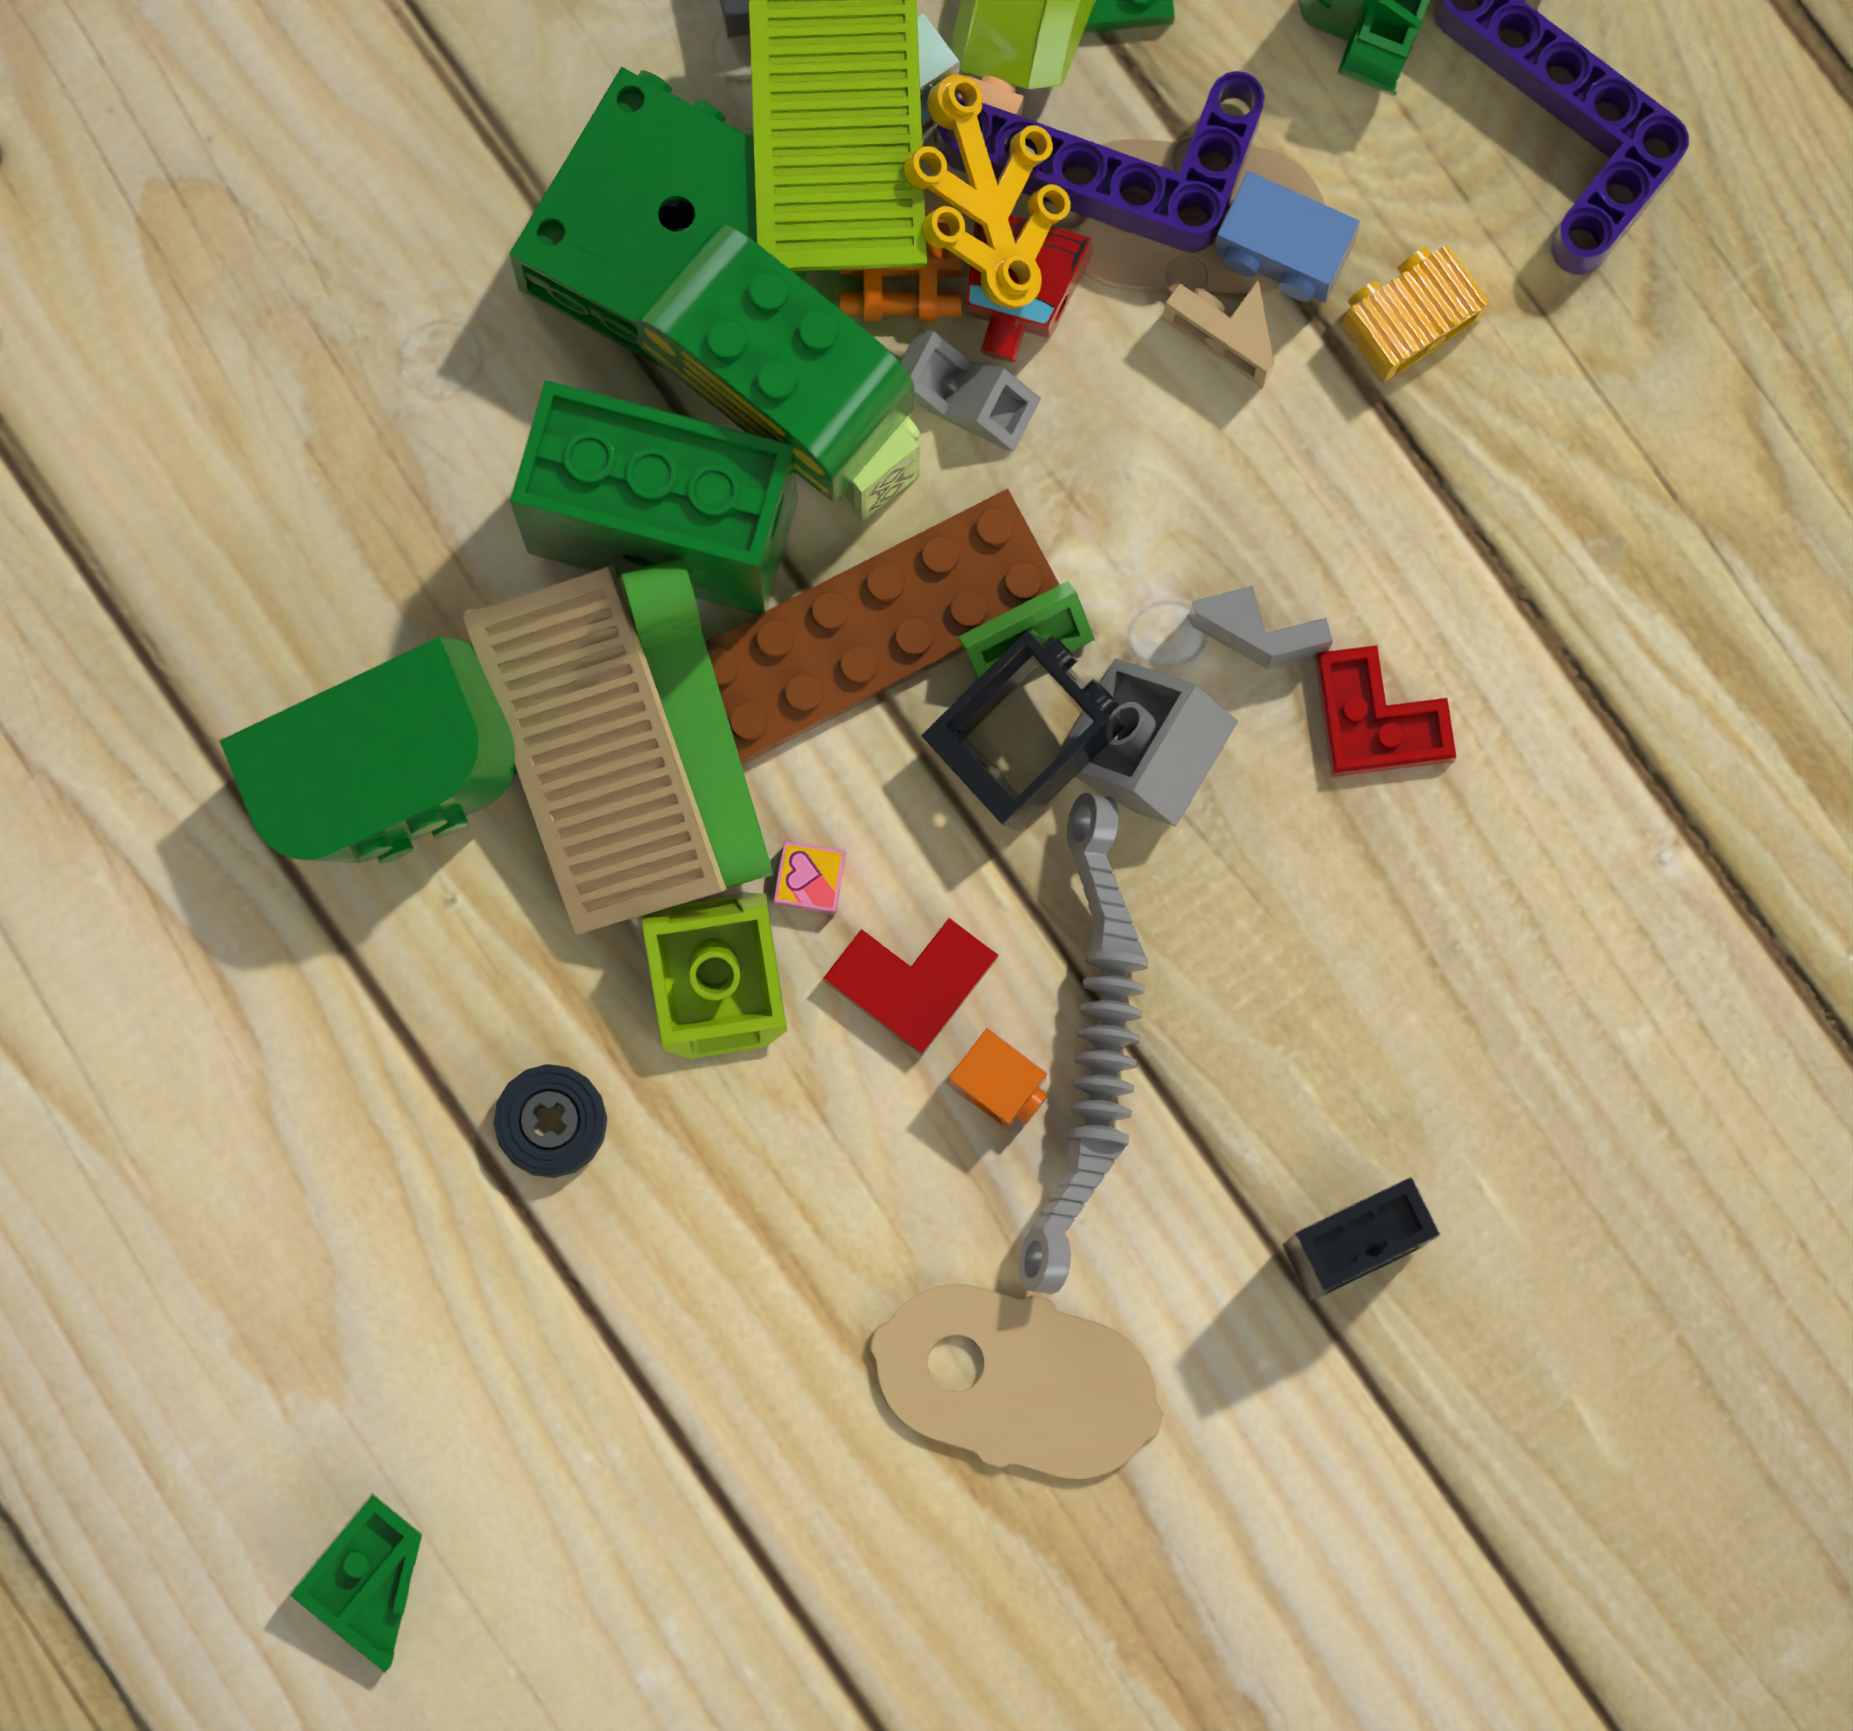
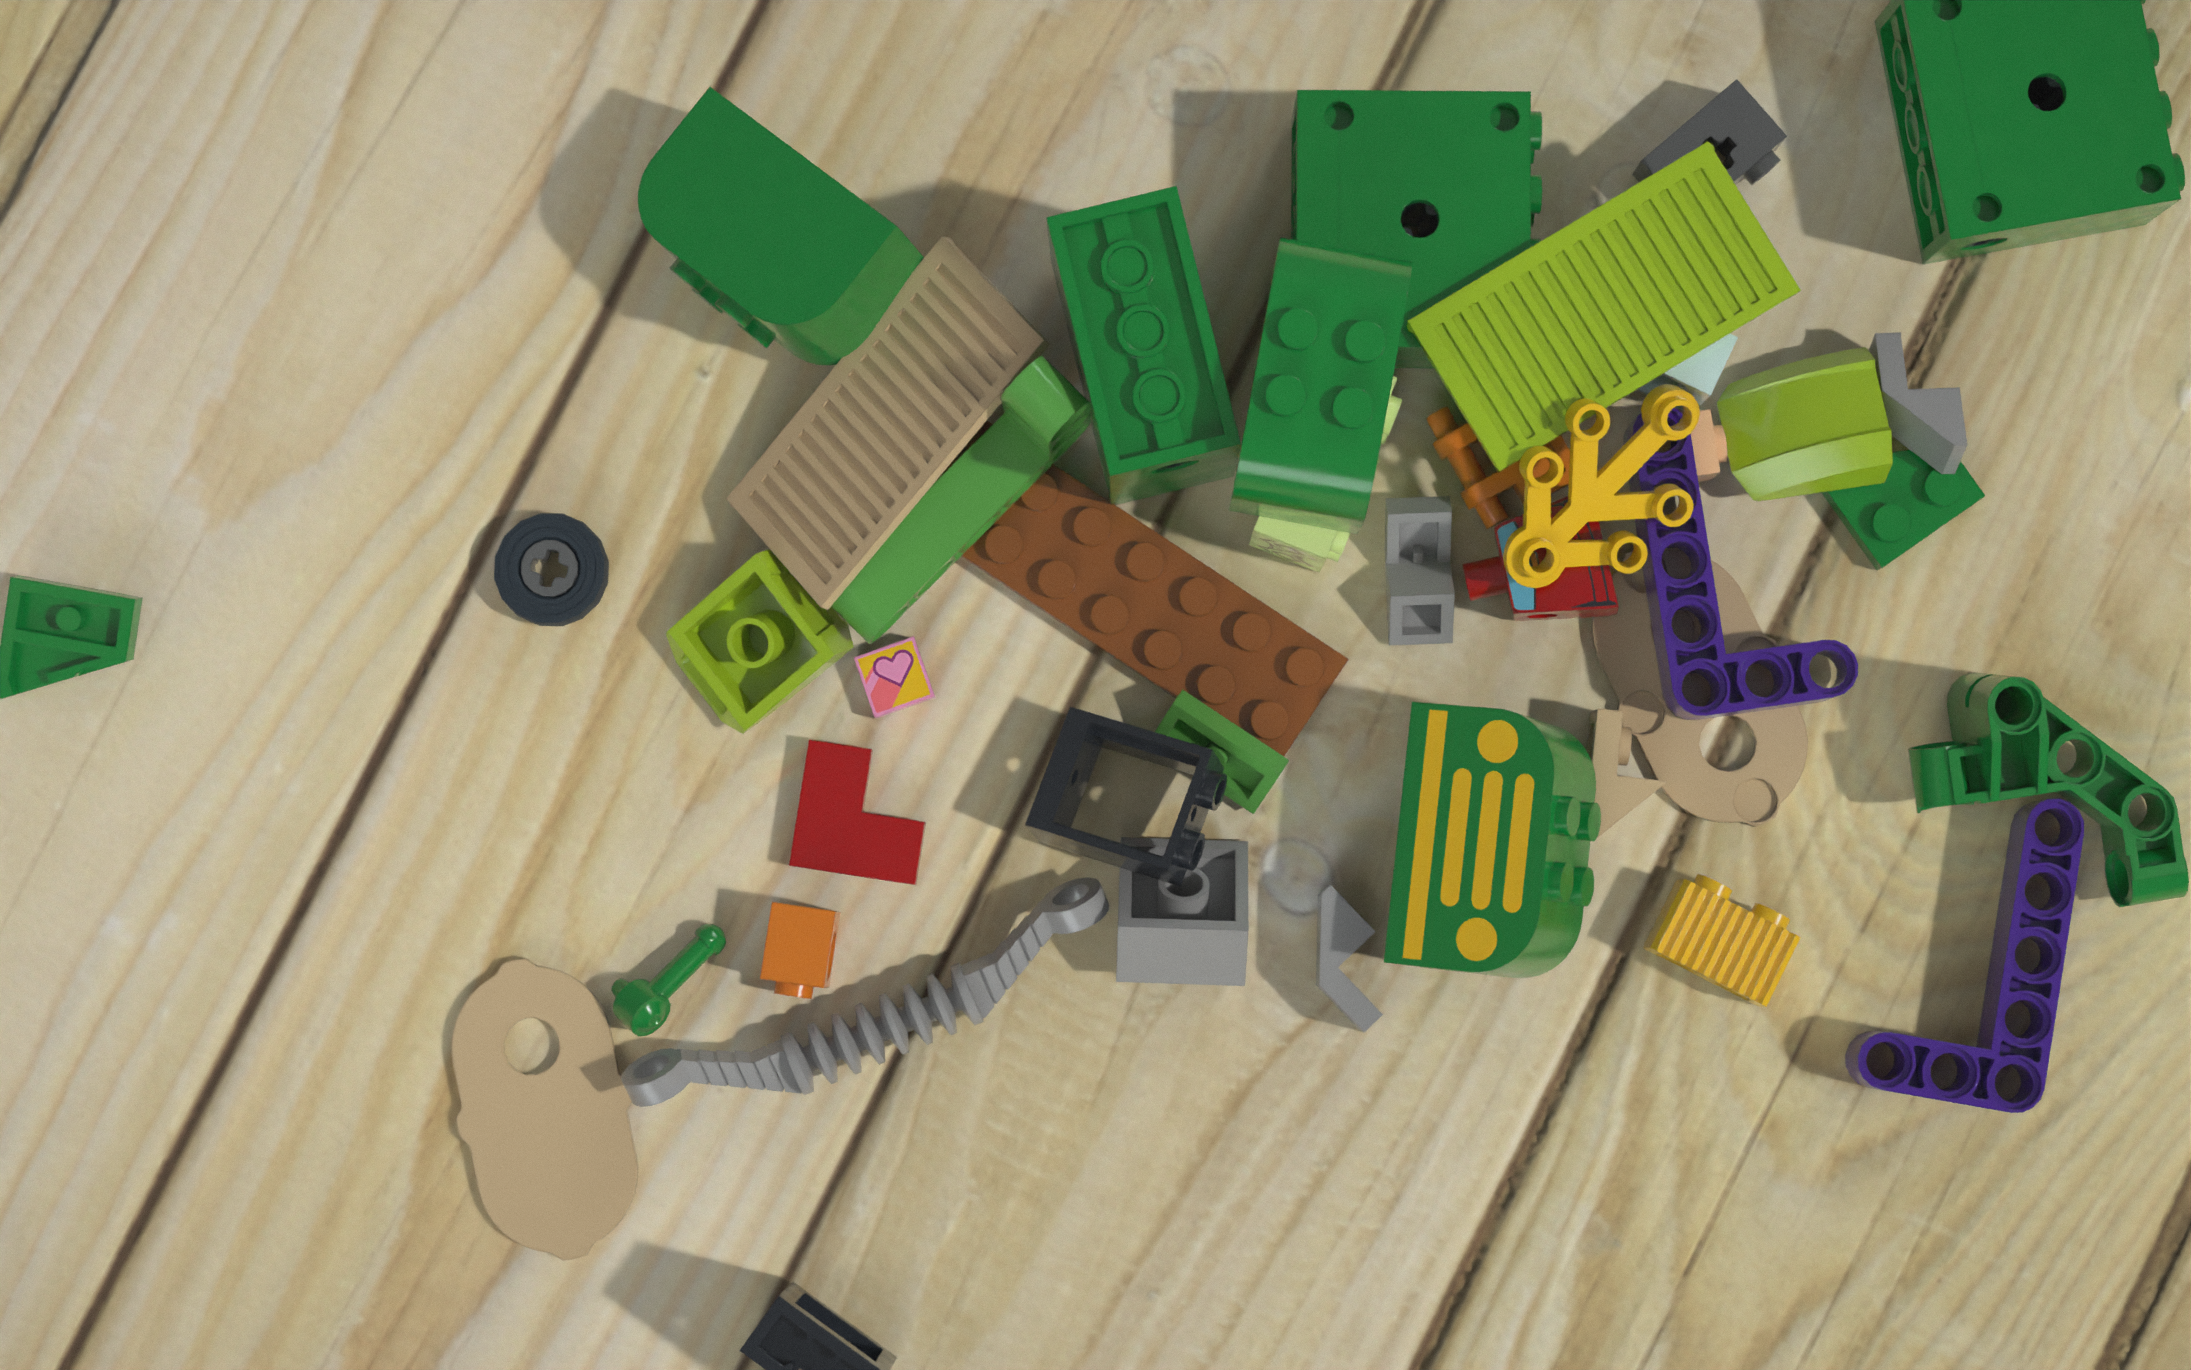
camera: 70 degrees right, 5 degrees up
(975, 1240) = (645, 1004): none -> green piece
(1232, 447) = (1491, 843): none -> green brick
(1285, 238) = (1722, 785): medium blue brick -> none
(1366, 732) = (1306, 1103): red tile -> none

